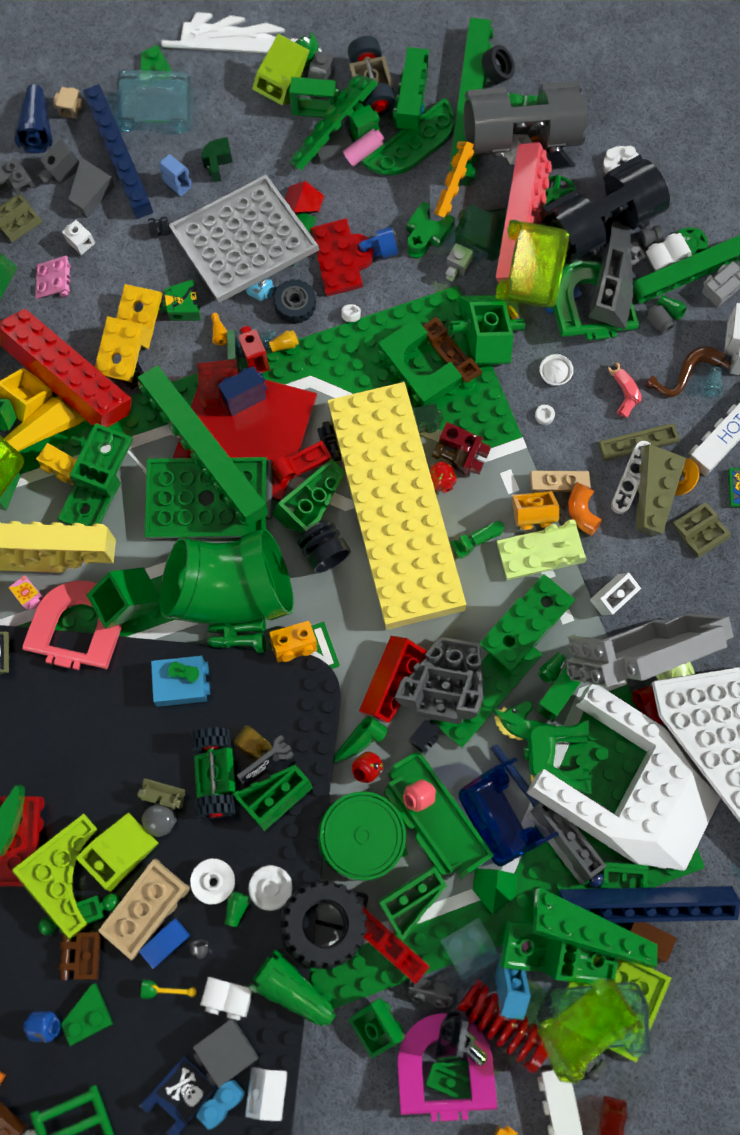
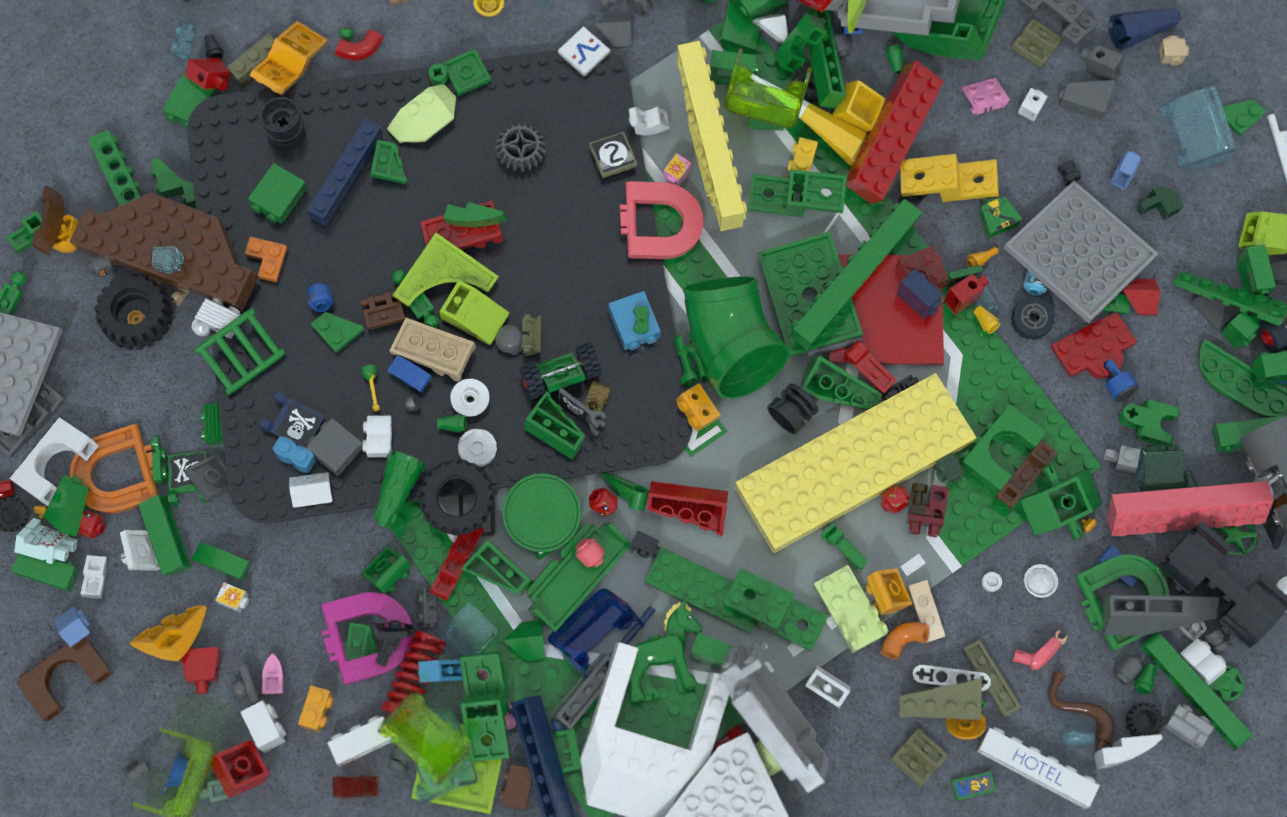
camera: 70 degrees right, 0 degrees up
(118, 151) = (1135, 111): dark blue brick -> none
(123, 596) = (696, 250): green slope -> none
(351, 313) = (1038, 373): white tile -> none
(363, 146) = (1218, 335): bright pink brick -> none
(445, 683) = (696, 549): dark grey wedge -> none
(453, 177) = (1178, 429): light orange wing -> none
(534, 265) = (1136, 525): clear neon green windscreen -> none
(550, 670) = (737, 640): green cone -> none
(576, 926) = (510, 705): green wing -> none
(710, 330) = (1148, 709): none -> black tyre

